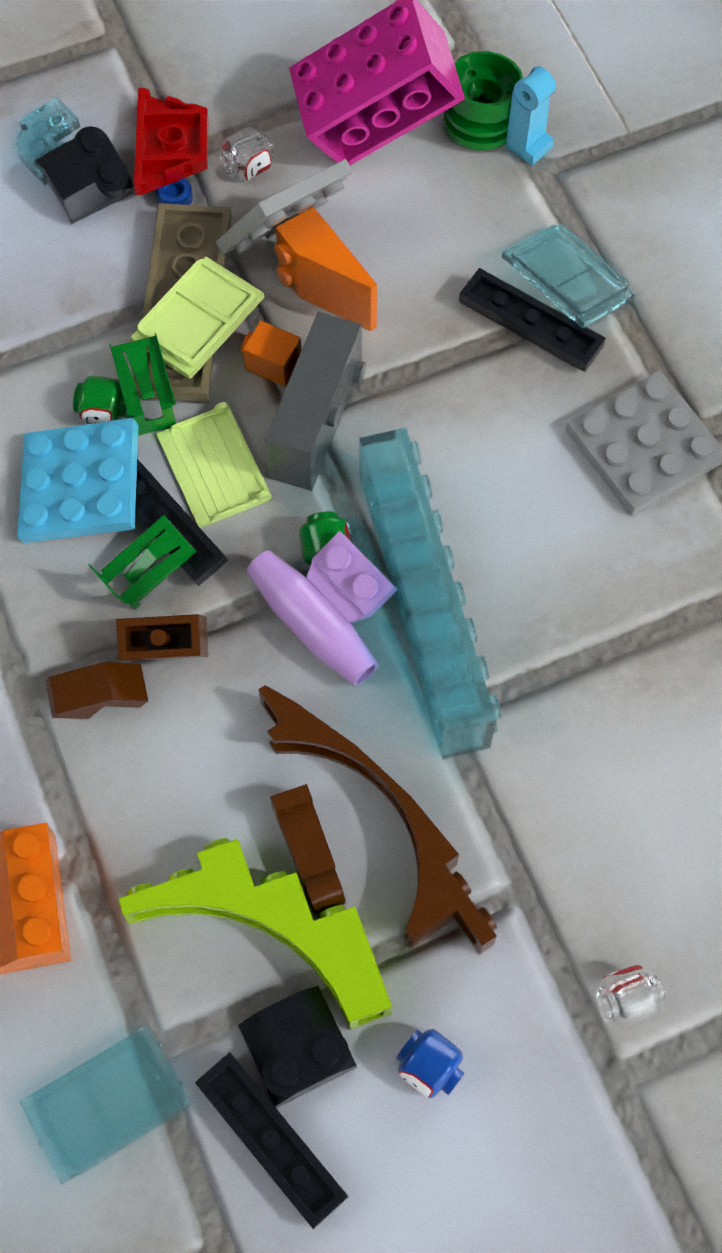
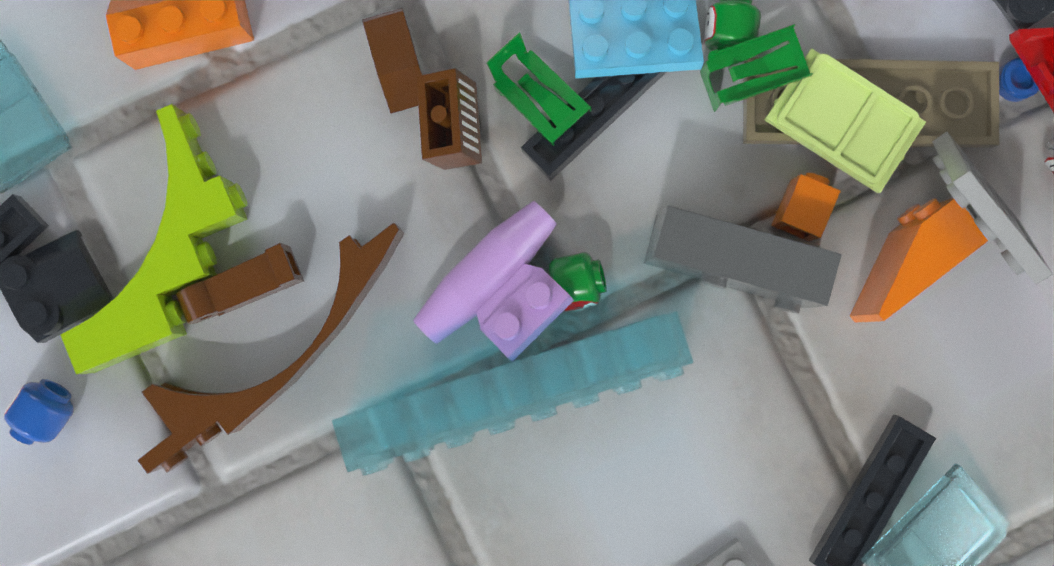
camera: 90 degrees right, 20 degrees up
(213, 465) = (667, 155): yellowish green piece -> none

